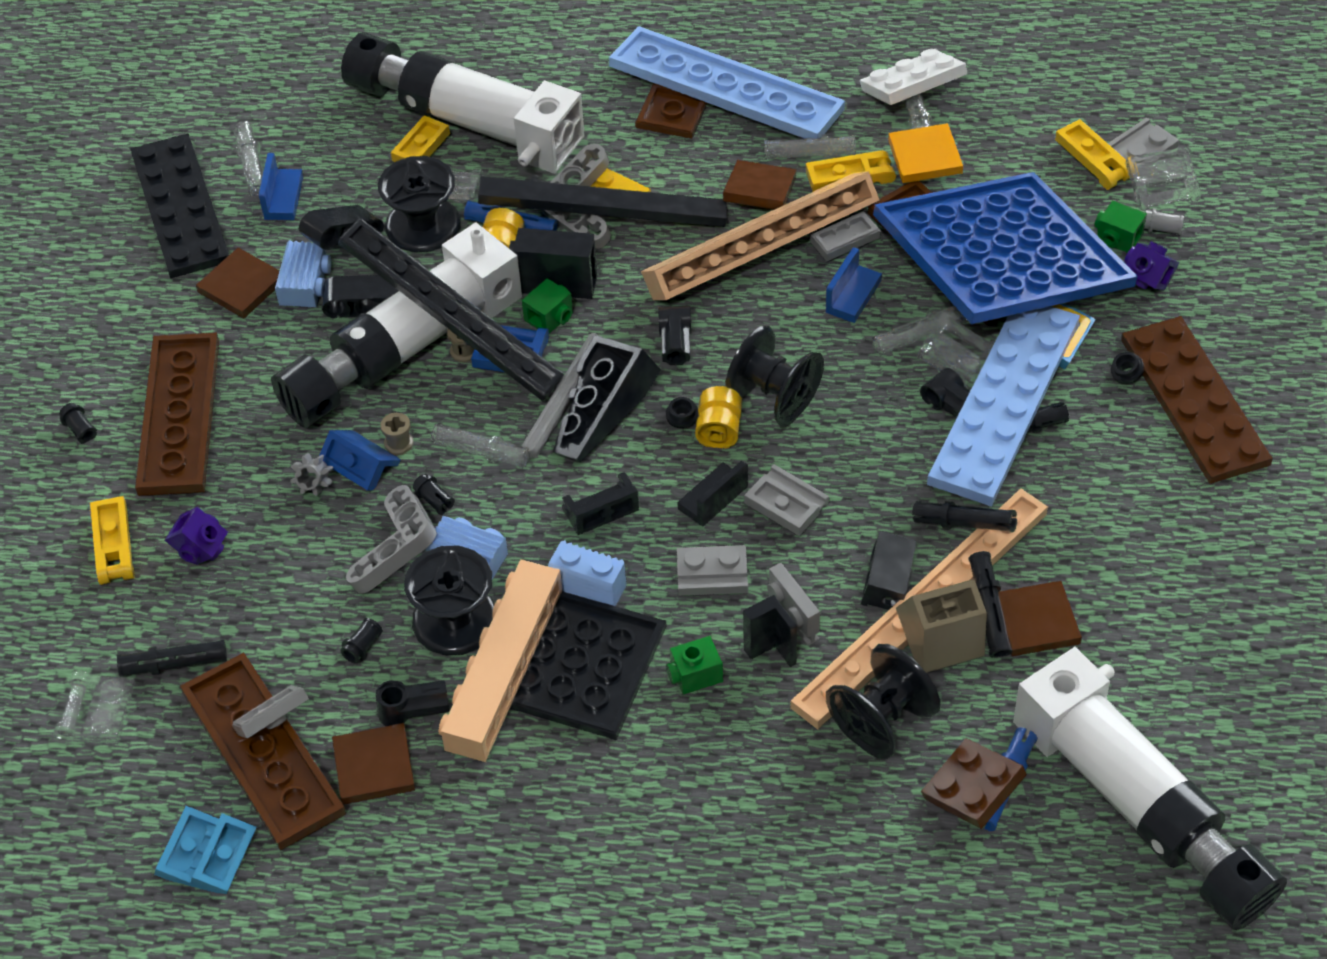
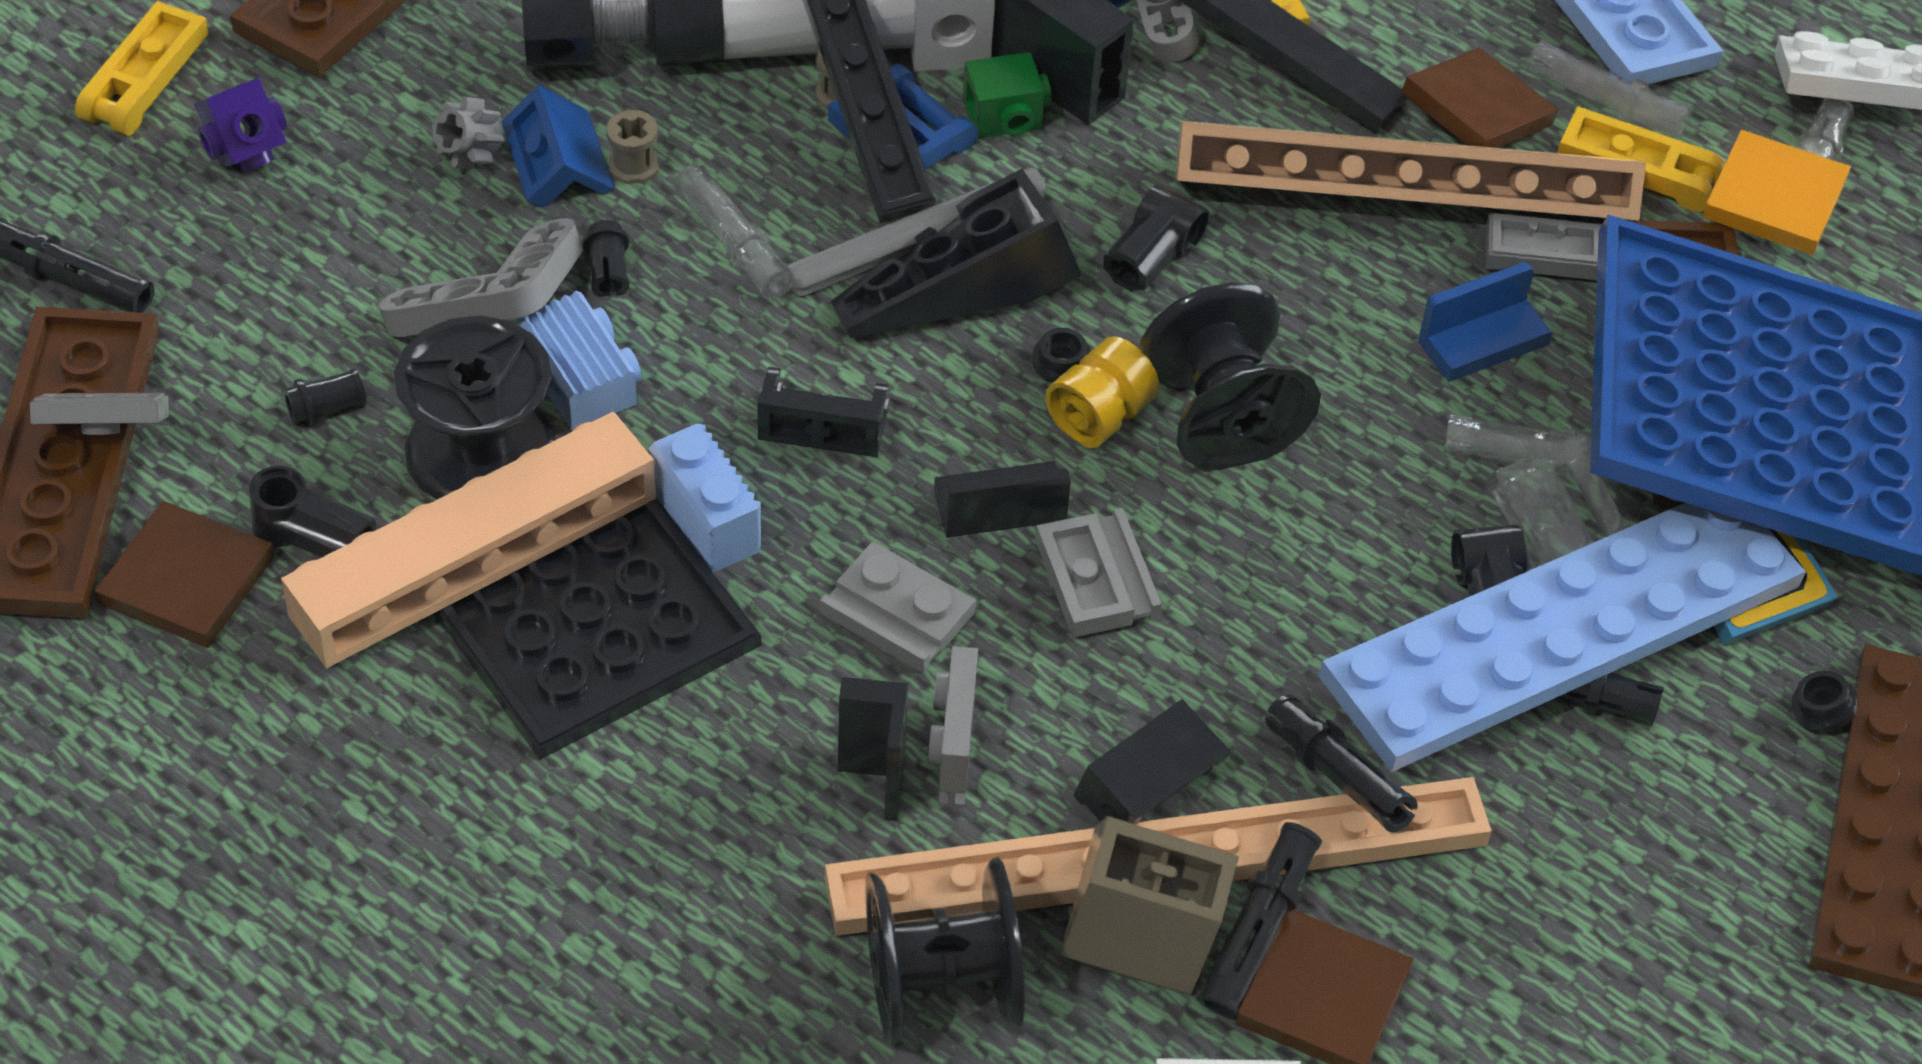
camera: 30 degrees right, 0 degrees up
(695, 665) = (737, 723): green brick -> none

